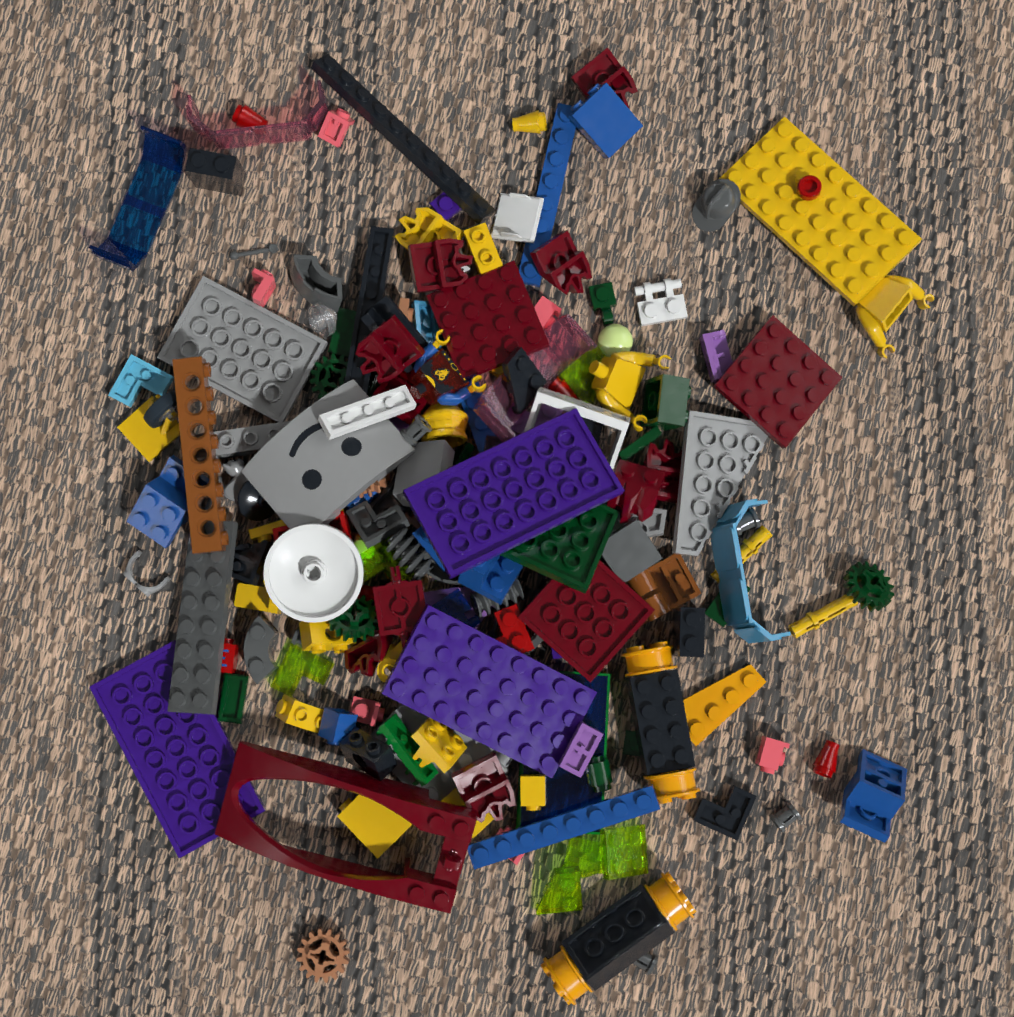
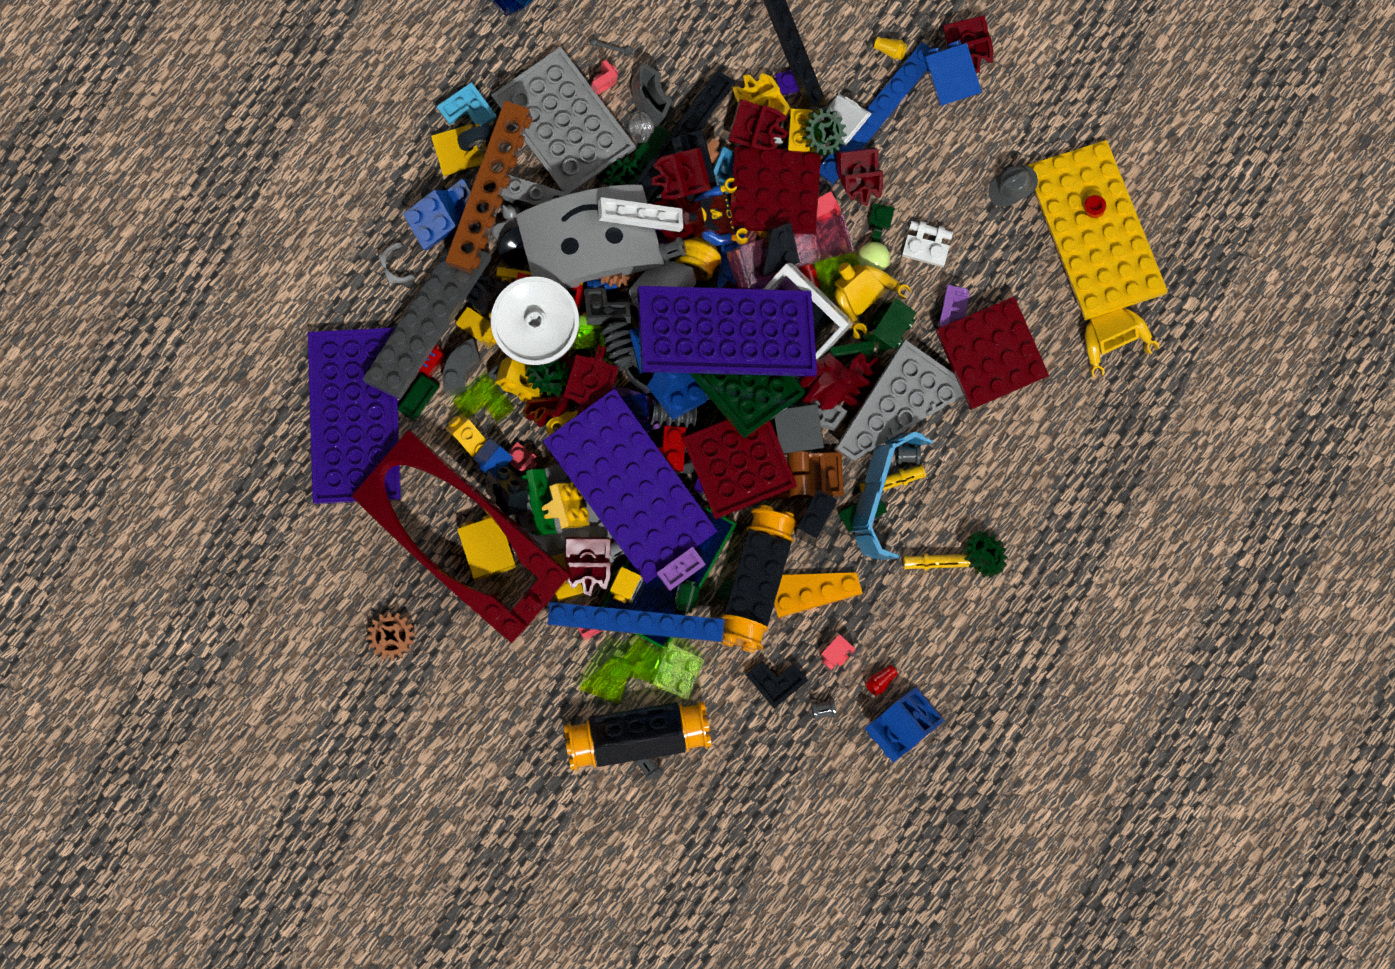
camera: 30 degrees right, 5 degrees down
(508, 239) = (823, 132): none -> dark green gear

